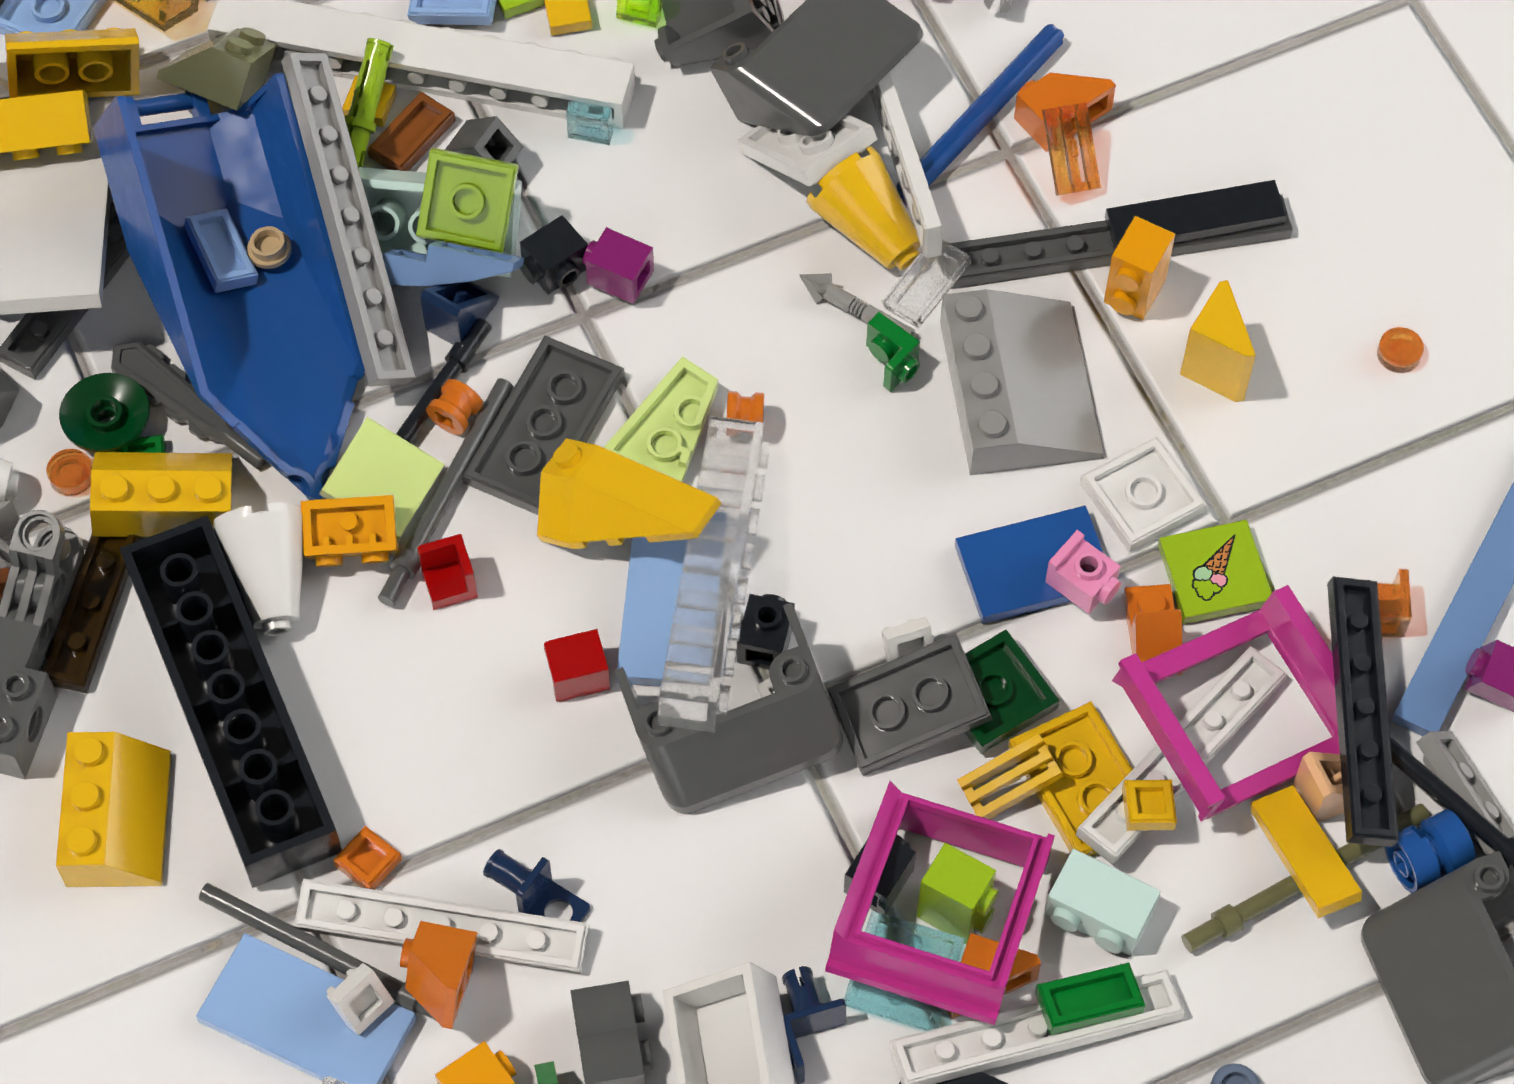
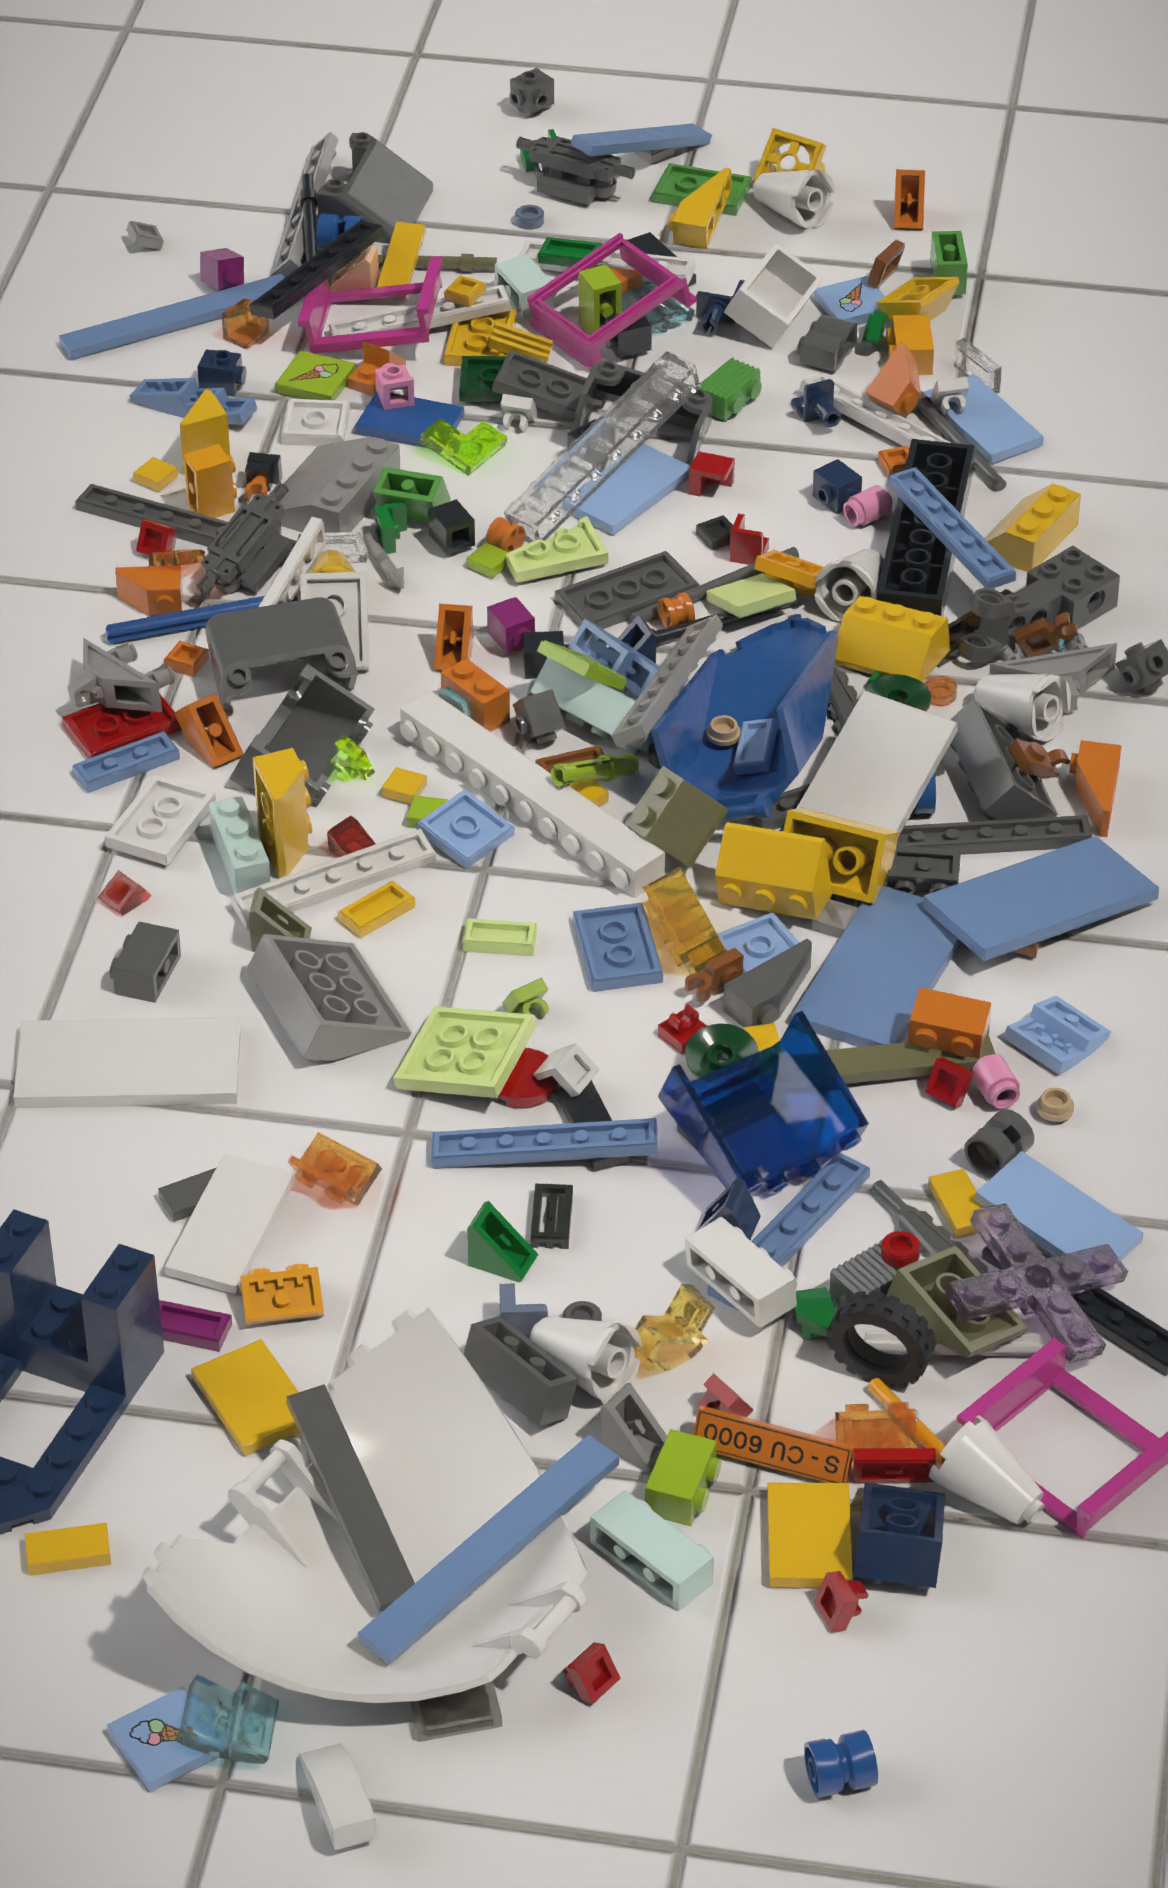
camera: 145 degrees left, 20 degrees down
(178, 672) = (951, 528): none -> medium blue tile
(343, 728) = (868, 506): none -> bright pink brick
(404, 739) = (835, 485): none -> dark blue brick
(508, 589) = (715, 532): none -> pearl dark grey tile
(579, 147) = (486, 695): none -> orange brick
(608, 497) = (626, 511): yellow wedge -> none
(671, 220) = (453, 635): none -> orange slope
(674, 849) = (732, 387): none -> bright green brick
(741, 375) = (487, 560): none -> lime tile
(814, 380) = (451, 526): none -> black brick
(898, 396) = (415, 489): none -> bright green brick
(917, 538) = (461, 450): none -> clear neon green plate
(945, 52) = (186, 658): none -> orange tile
(1005, 200) = (248, 546): none -> dark grey piece
(1117, 351) = (262, 472): none -> black piece
(1140, 179) = (155, 537): none -> red tile
(1204, 212) = (142, 503): black tile -> none
(1248, 292) = (155, 474): none -> yellow tile
(1316, 432) = (178, 396): none -> medium blue slope
(1324, 492) = (221, 370): none -> dark blue brick
(1400, 350) = (98, 417): clear orange tile -> none

